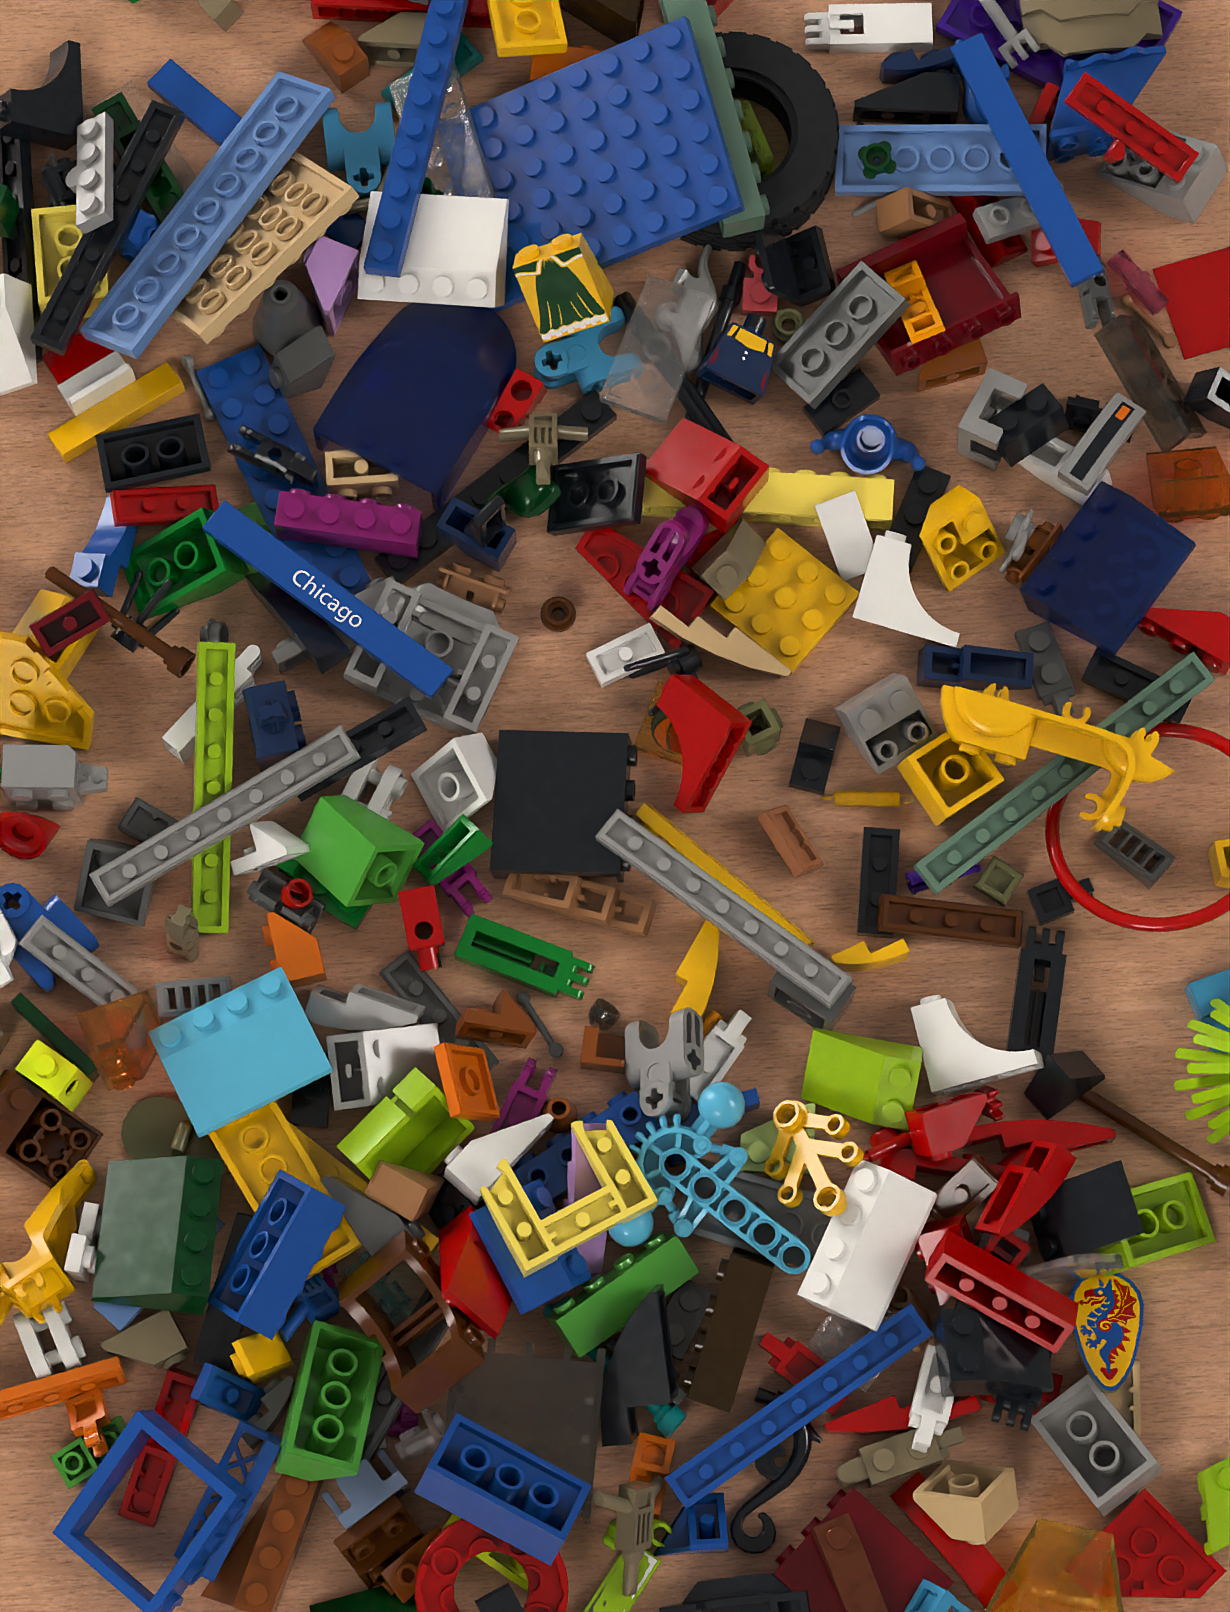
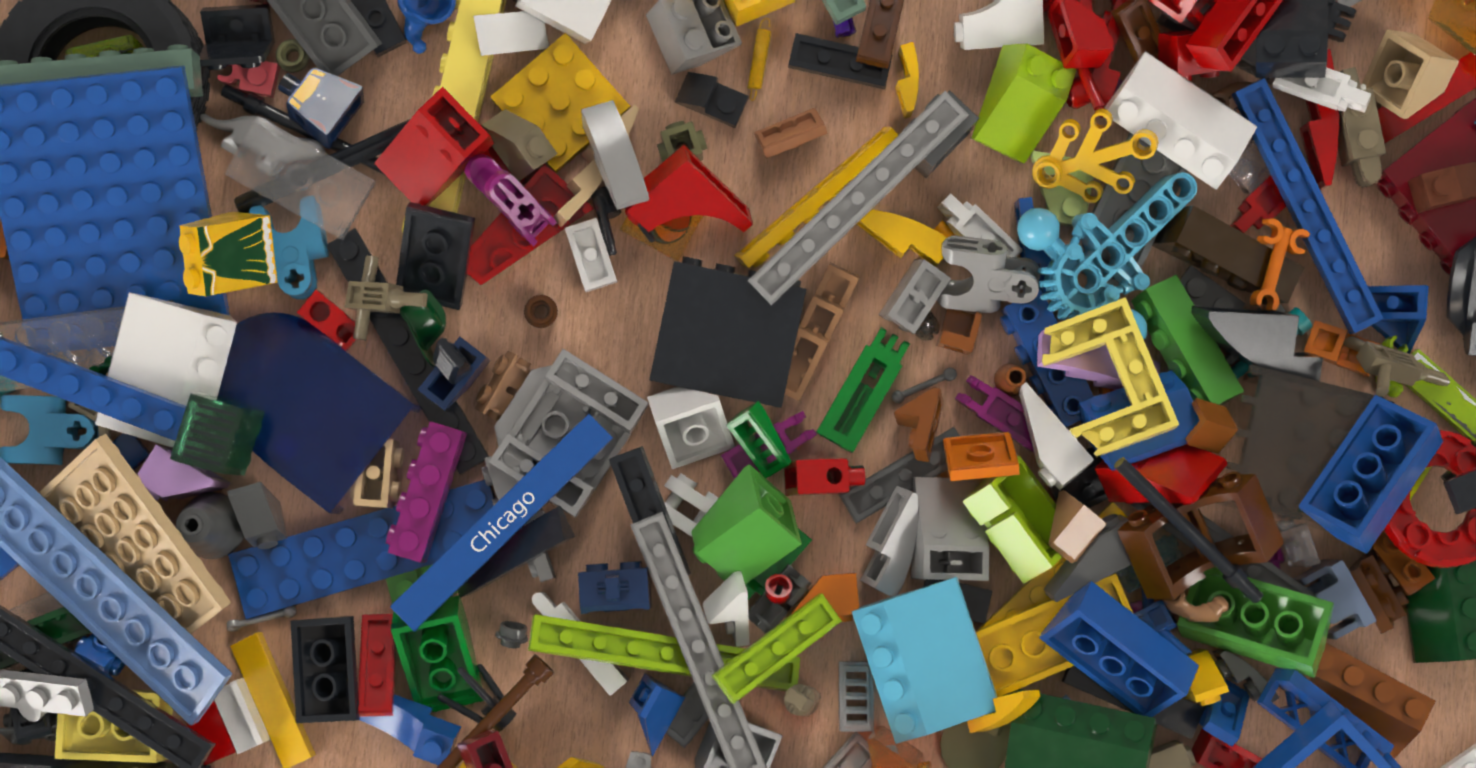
camera: 85 degrees left, 10 degrees up
(153, 790) = (655, 708): none -> blue slope
(196, 1142) = (1007, 709): none -> yellow slope
(233, 896) = (776, 648): none -> lime tile
(288, 467) = (362, 543): black hinge -> none
(329, 1340) = (1205, 613): none -> medium nougat piece
(374, 1361) = (1232, 573): none -> black bar
(377, 307) = (217, 434): none -> clear green slope
(533, 1317) = (1214, 427): none -> dark orange panel
(633, 996) = (915, 295): none -> light grey hinge
(728, 651) = (614, 154): none -> light grey slope
(754, 1377) = (1283, 241): none -> orange bar
(781, 1479) = (1359, 235): black plant -> none

